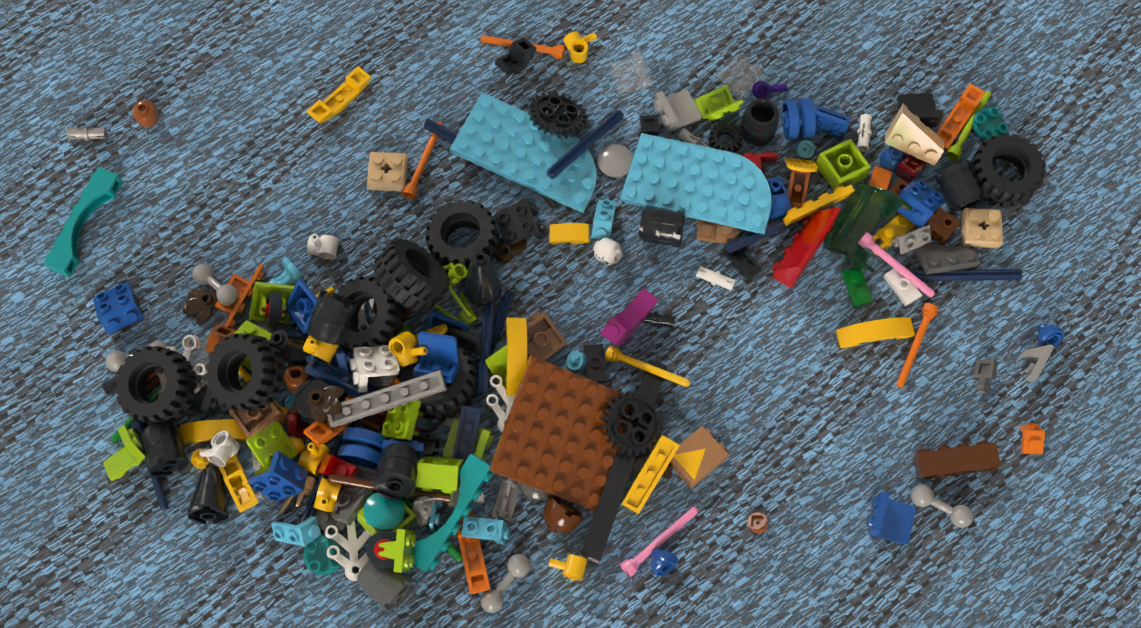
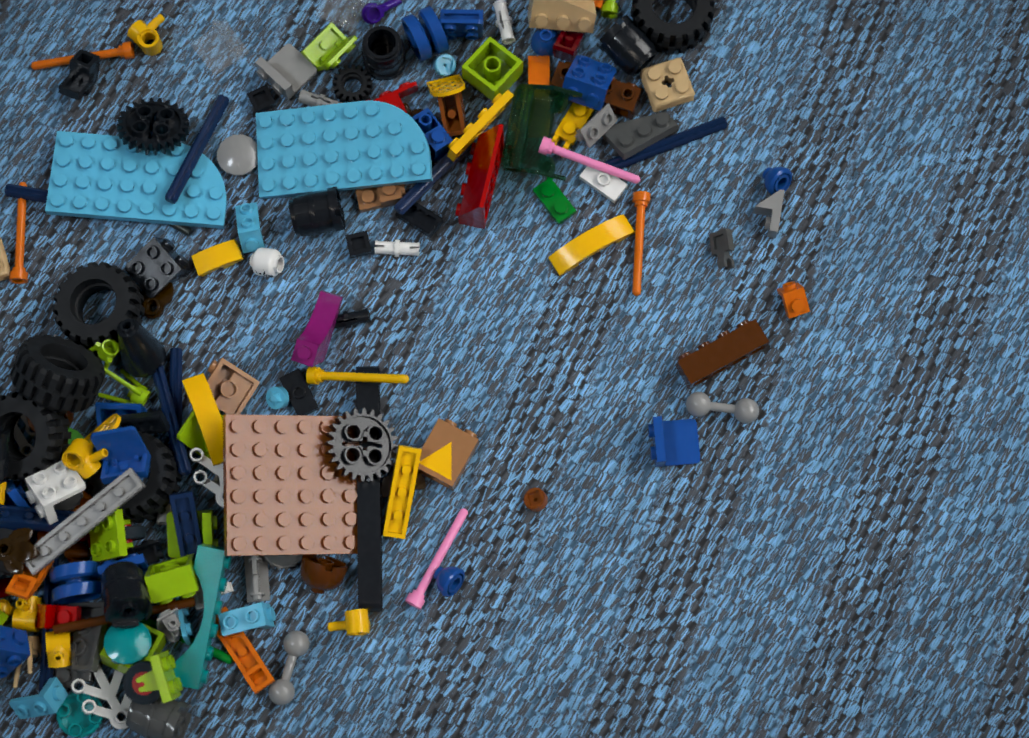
camera: 20 degrees left, 5 degrees up
(685, 264) = (358, 244): none -> black plate

